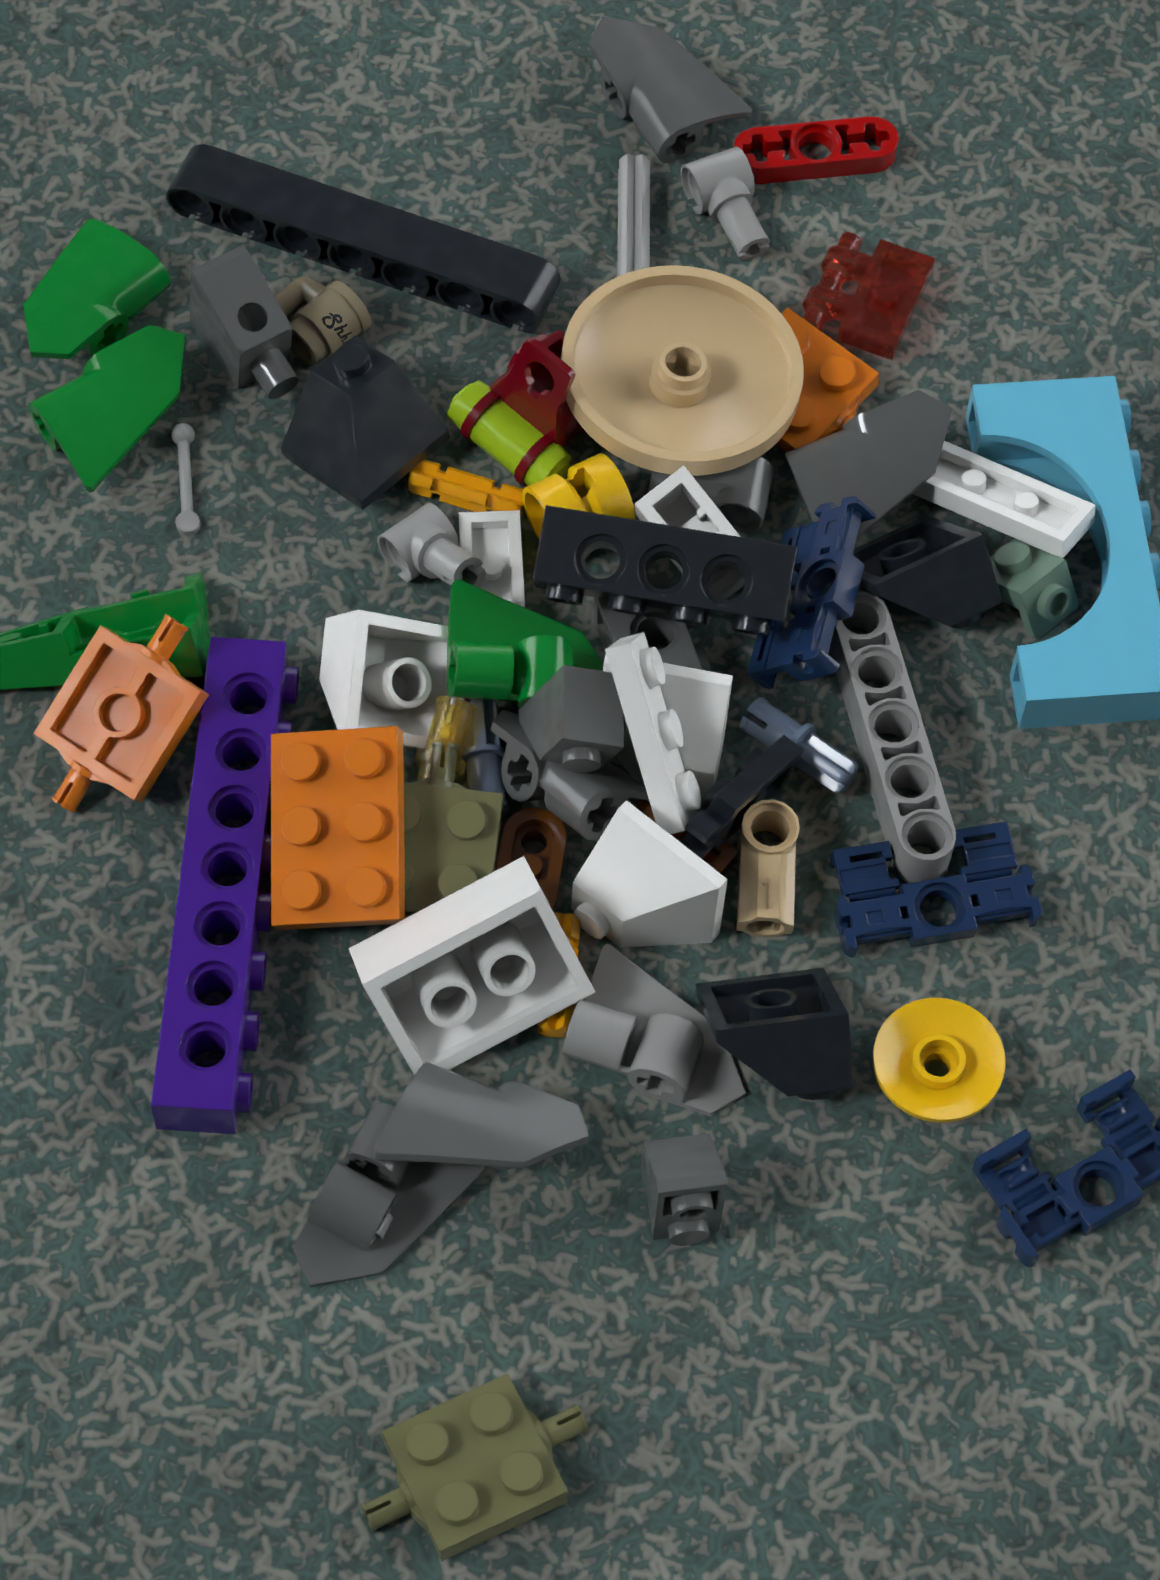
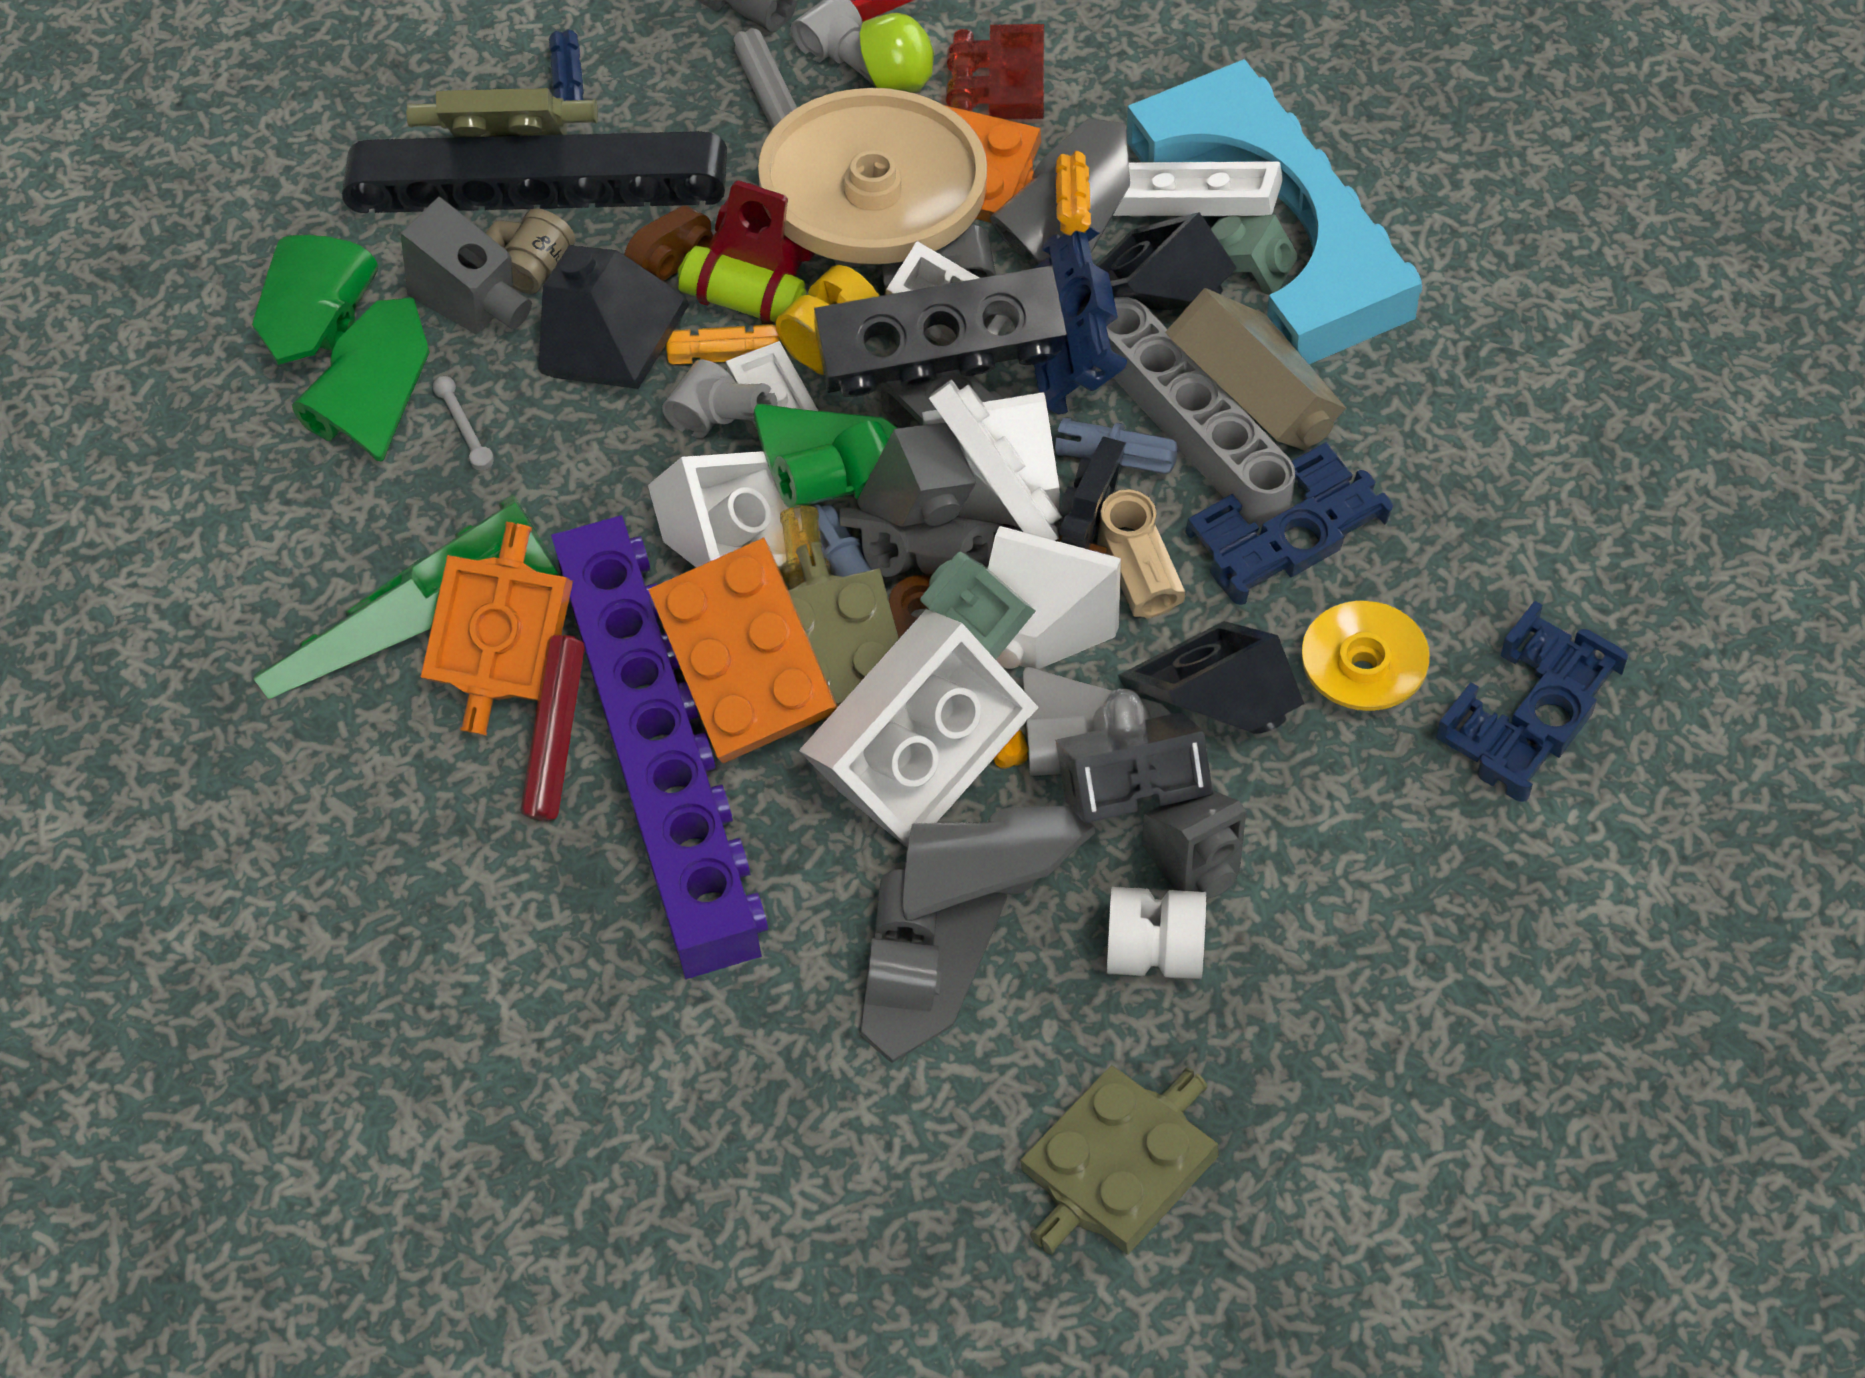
camera: 15 degrees left, 5 degrees down
(133, 833) = (552, 728): none -> dark red axle
(361, 172) = (502, 112): none -> olive plate
(440, 138) = (566, 65): none -> dark blue axle
(450, 365) = (667, 240): none -> reddish brown plate
(573, 870) = (979, 600): none -> sand green bracket
(605, 1262) = (1156, 933): none -> white wheel
(649, 1088) = (1133, 760): none -> black piece
(769, 238) = (896, 52): none -> lime hair
(864, 468) = (1073, 193): none -> light orange axle
(969, 720) = (1257, 368): none -> dark tan slope

